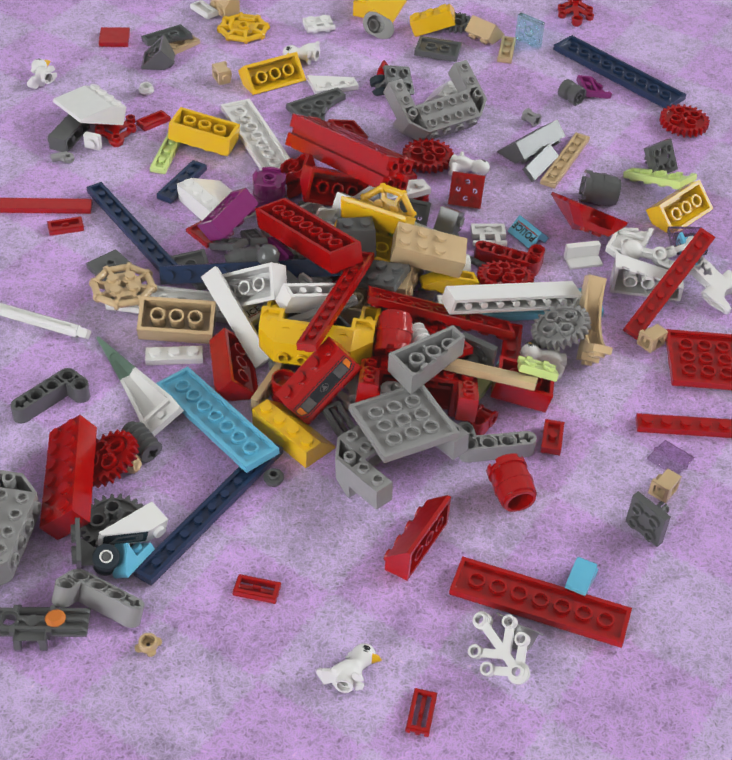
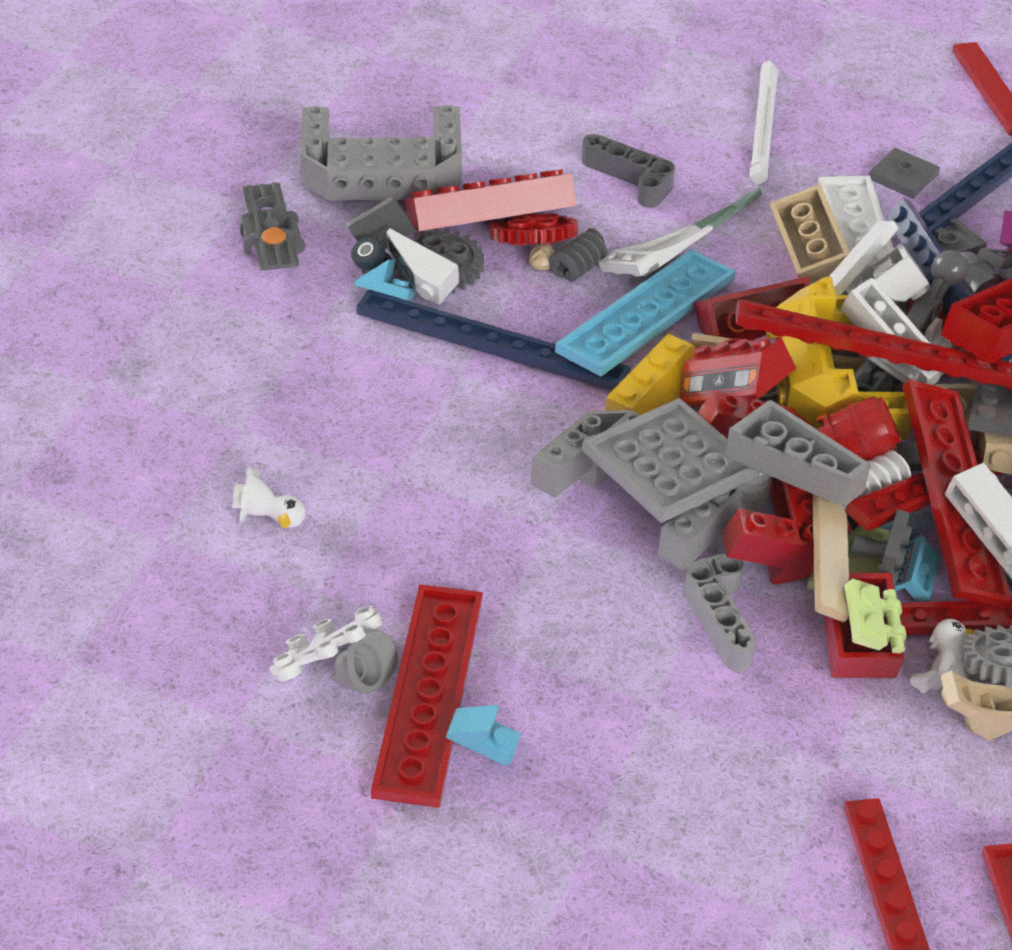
camera: 80 degrees right, 0 degrees up
(65, 226) = (962, 120): red tile -> none
(99, 596) = (329, 249): light grey beam -> none
(113, 285) = (859, 180): tan plate -> none
(148, 638) = (268, 325): tan plate -> none
(174, 355) = (758, 258): white plate -> none
(256, 592) = (377, 420): red tile -> none
(273, 477) = (569, 389): dark grey plate -> none
(417, 537) = (499, 541): red slope -> none
(418, 729) = (217, 588): red tile -> none
(484, 420) = (765, 591): red piece -> none
(512, 482) = (638, 630): red piece -> none
(552, 437) = (772, 685): red plate -> none
(648, 518) = (621, 805): dark grey plate -> none
(665, 485) = (718, 841): tan brick -> none
(670, 457) = (797, 858): clear purple piece -> none

